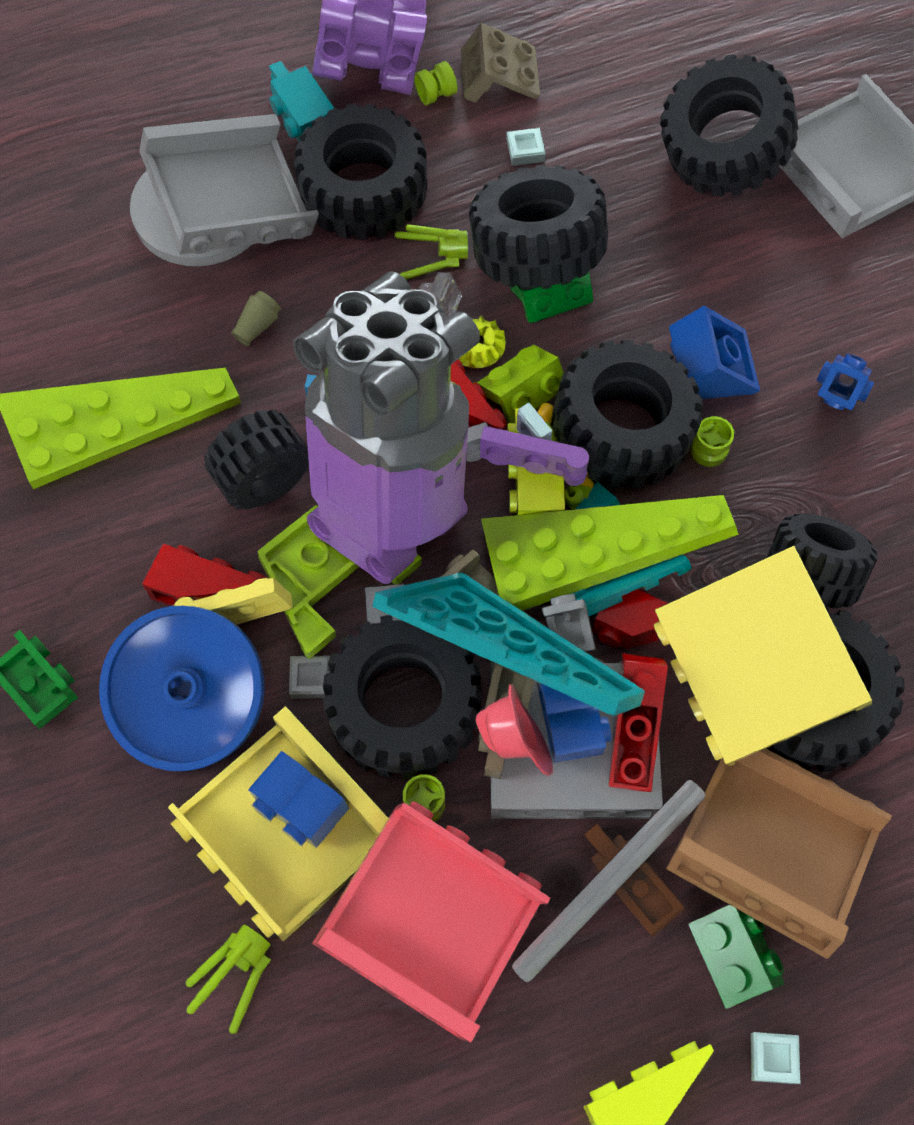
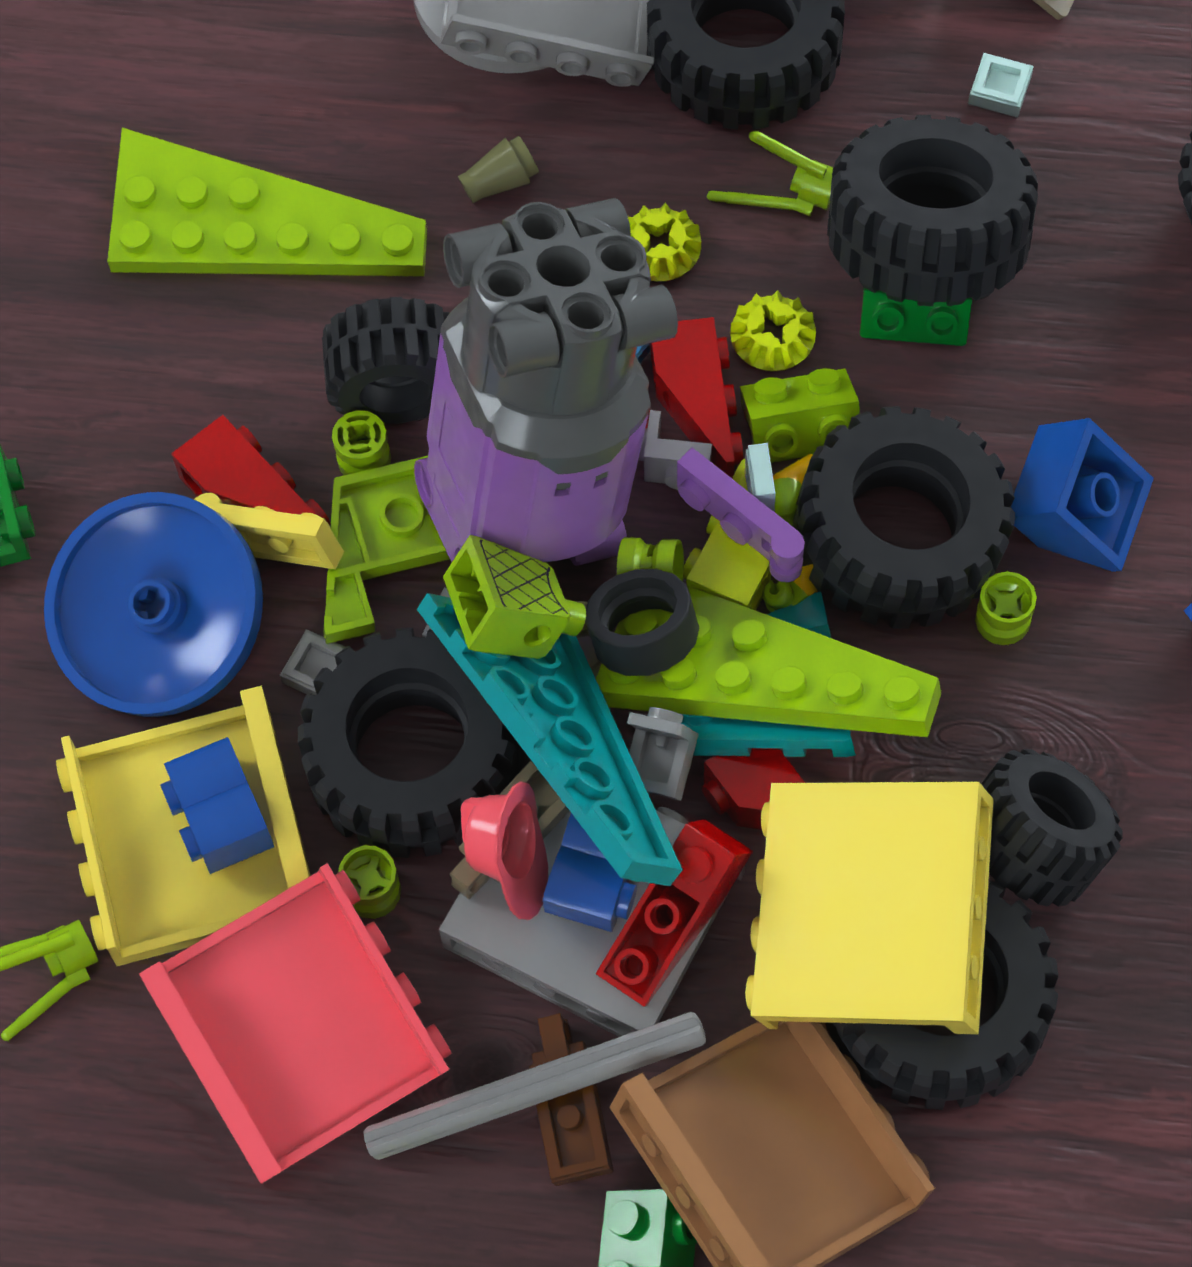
camera: 30 degrees right, 0 degrees up
(266, 529) = (362, 454): none -> lime wheel
(427, 573) = (509, 601): none -> lime torso
(445, 292) = (757, 249): clear tile -> none
(493, 512) = (665, 556): none -> lime wheel
(523, 569) = (652, 650): none -> black tyre

